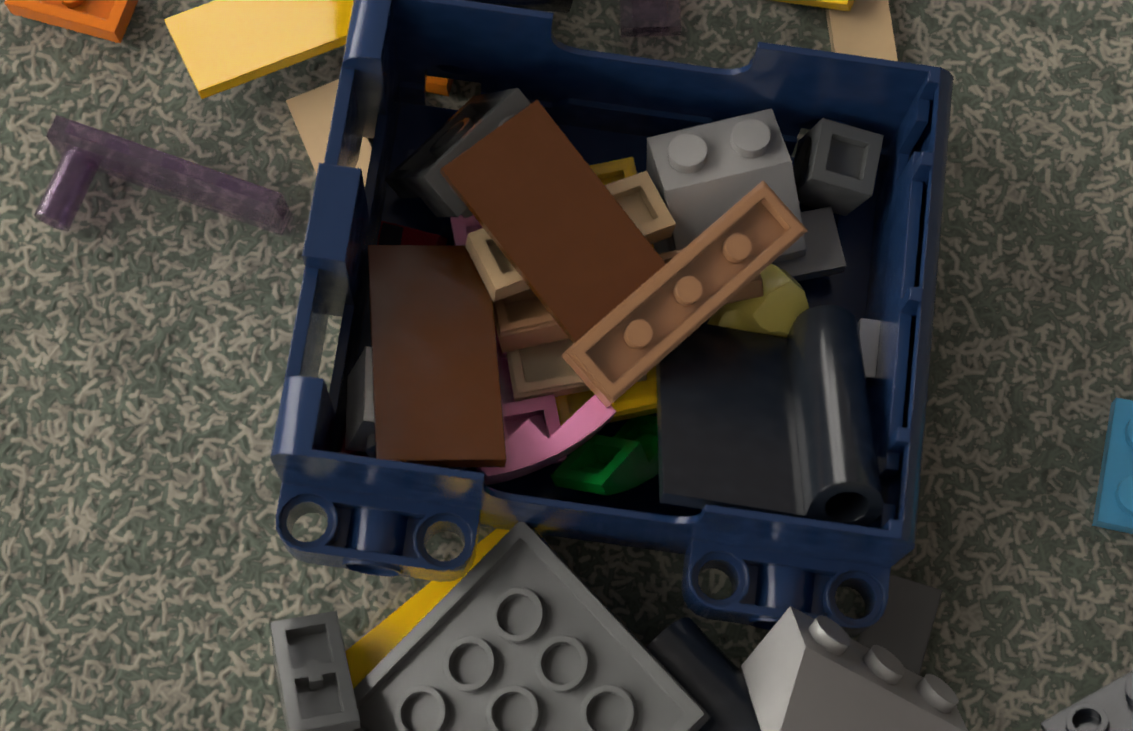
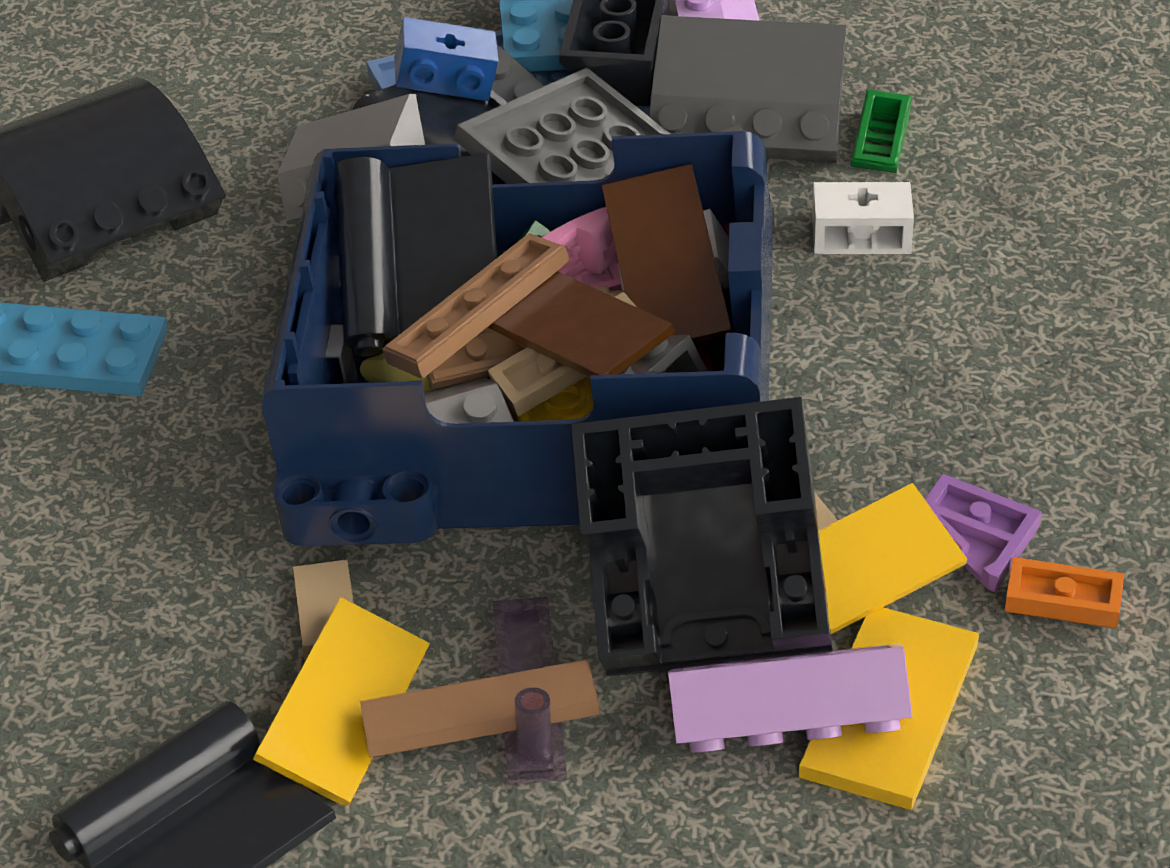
camera: 170 degrees right, 30 degrees down
(92, 150) = (921, 461): piece -> none
(121, 614) = (862, 218): none -> white brick
(138, 89) = (984, 527): none -> medium lavender wing

